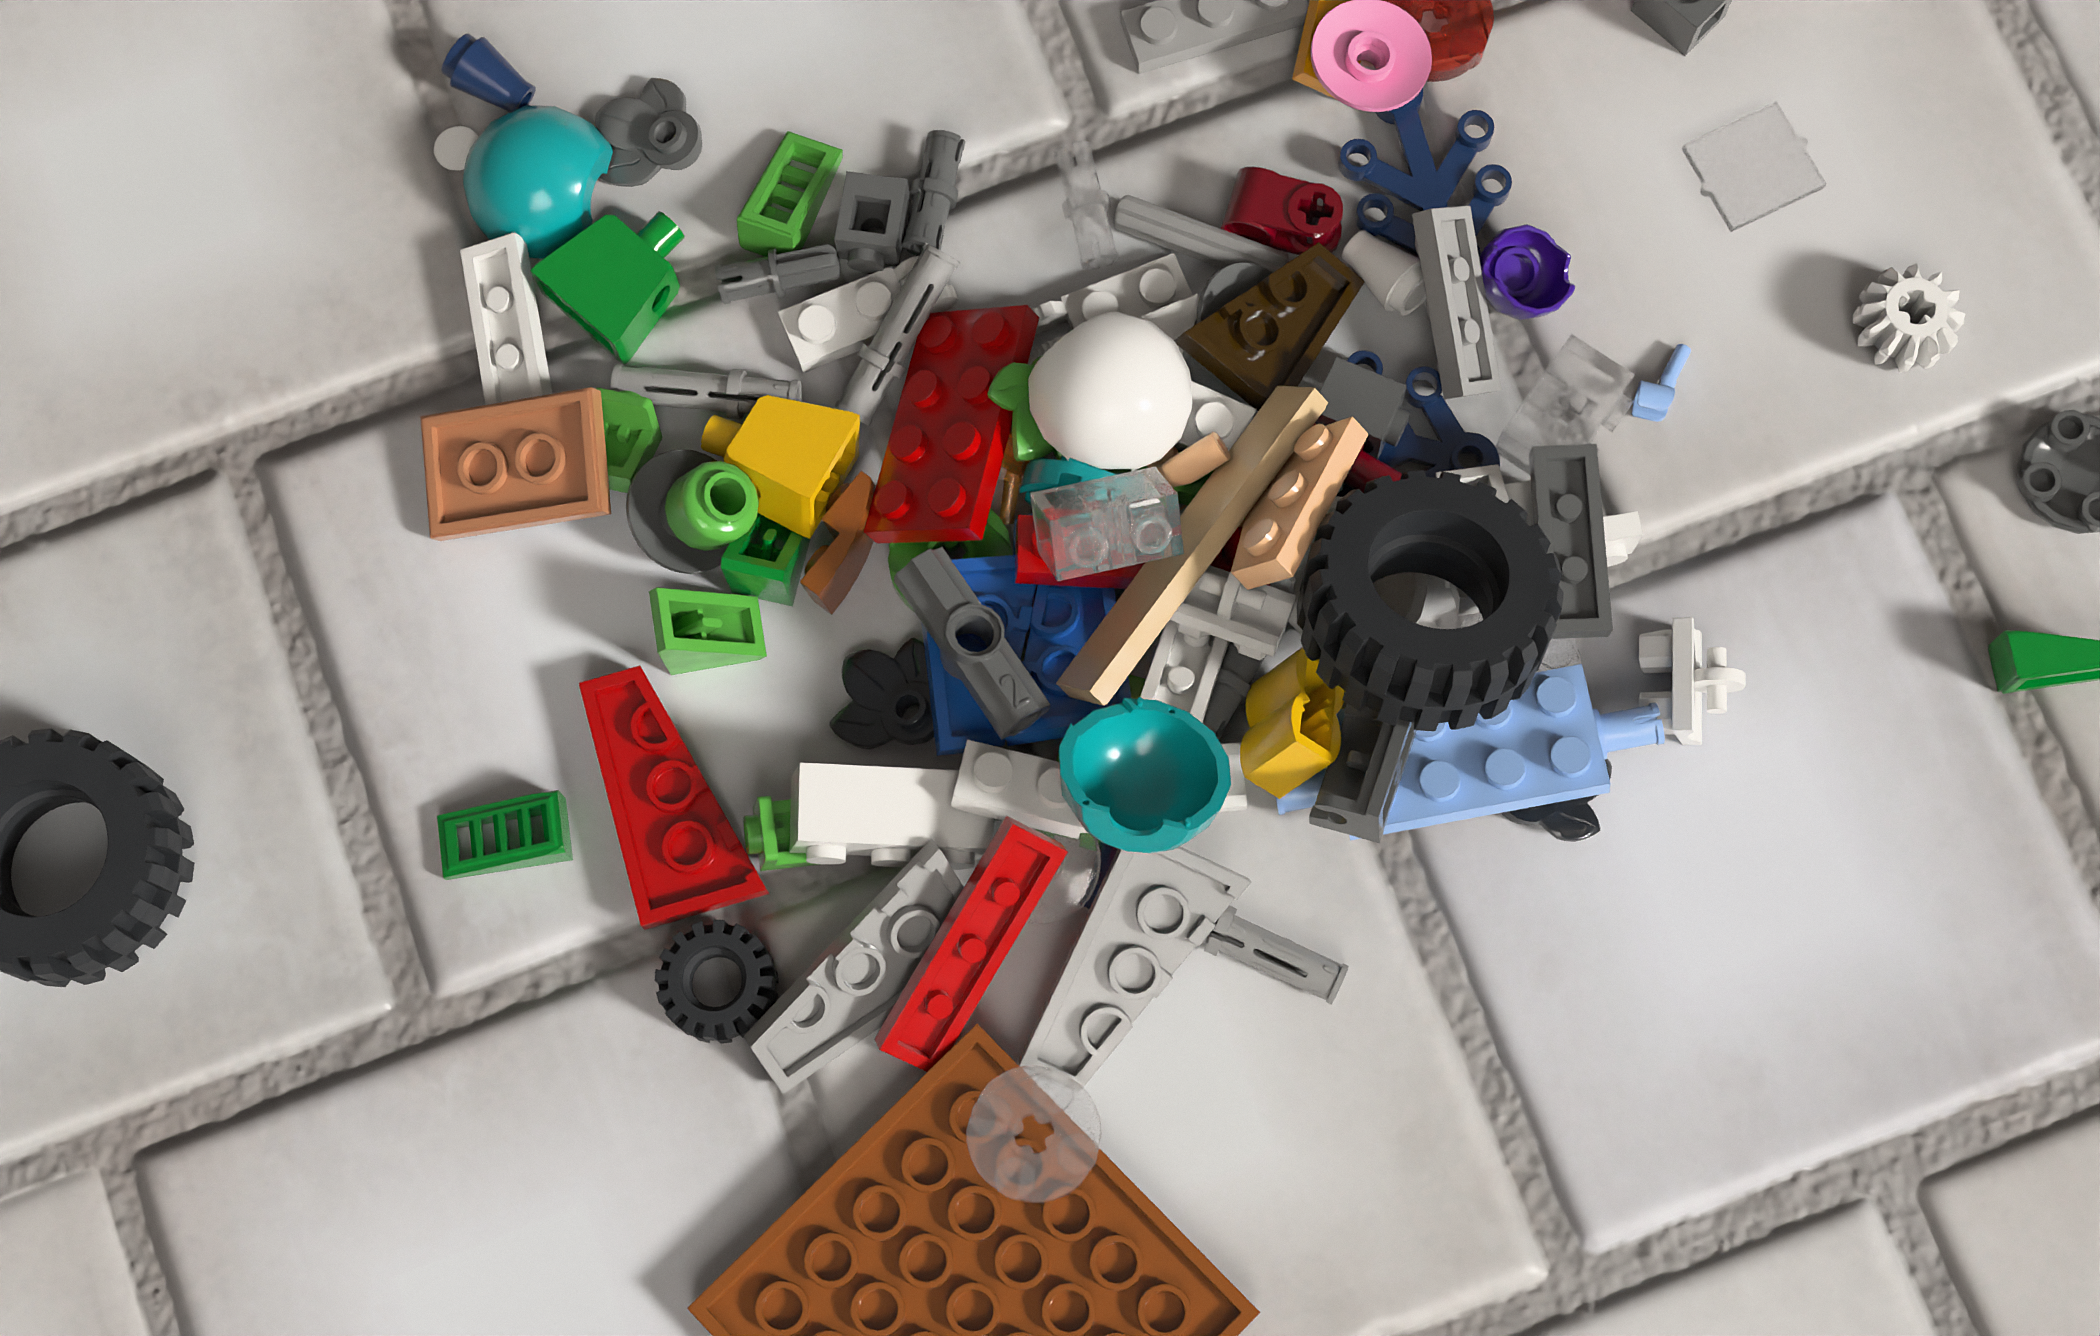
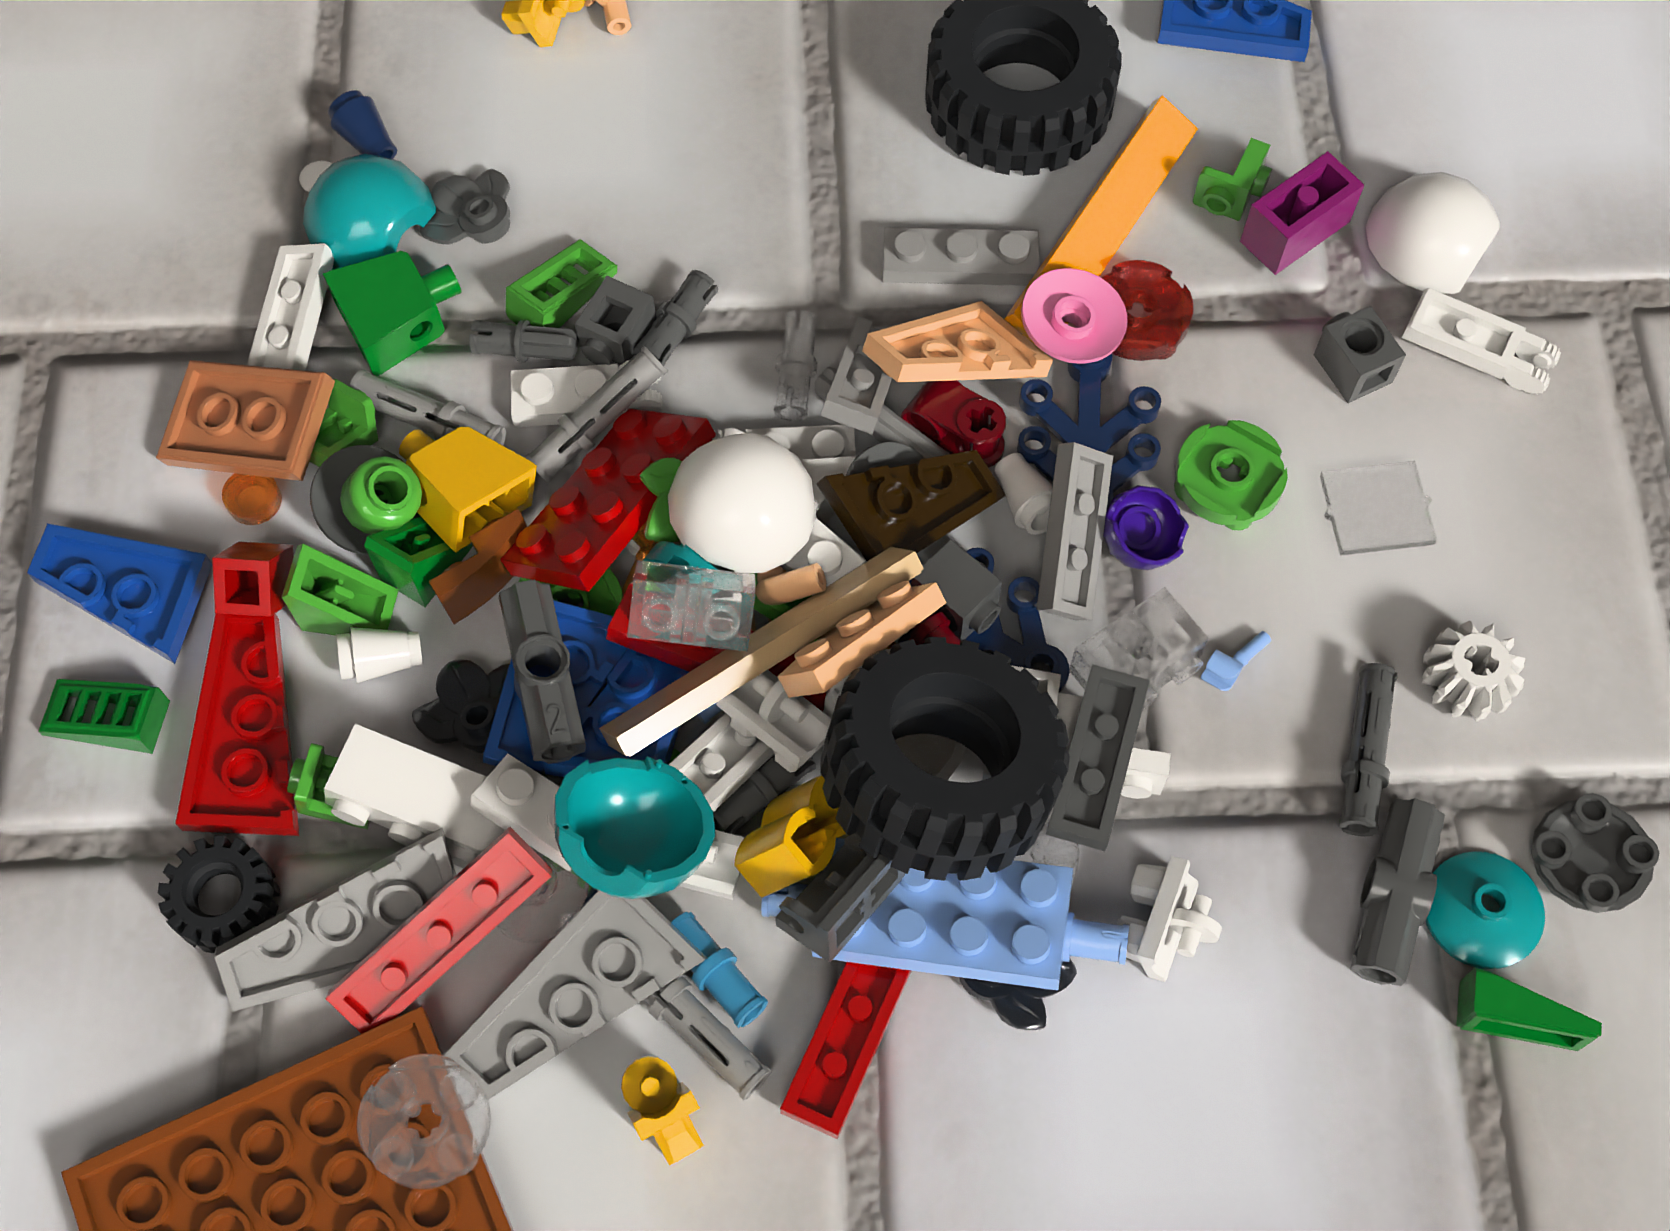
camera: 15 degrees right, 10 degrees down
(462, 689) = (124, 583): none -> blue wing
(554, 549) = (251, 498): none -> clear orange tile
(608, 639) = (251, 578): none -> red brick
(768, 674) = (376, 652): none -> white cone
(1170, 196) = (858, 384): none -> light grey plate
(1257, 131) = (956, 345): none -> light nougat wing
(1264, 1042) = (661, 1107): none -> yellow hips
(1266, 891) = (721, 975): none -> dark azure pin
(1412, 918) = (844, 1046): none -> red plate
(1584, 212) = (1224, 501): none -> bright green plate
(1831, 460) = (1366, 770): none -> dark grey pin
(1903, 576) = (1398, 892): none -> dark grey piece
(1967, 579) = (1471, 931): none -> teal dish

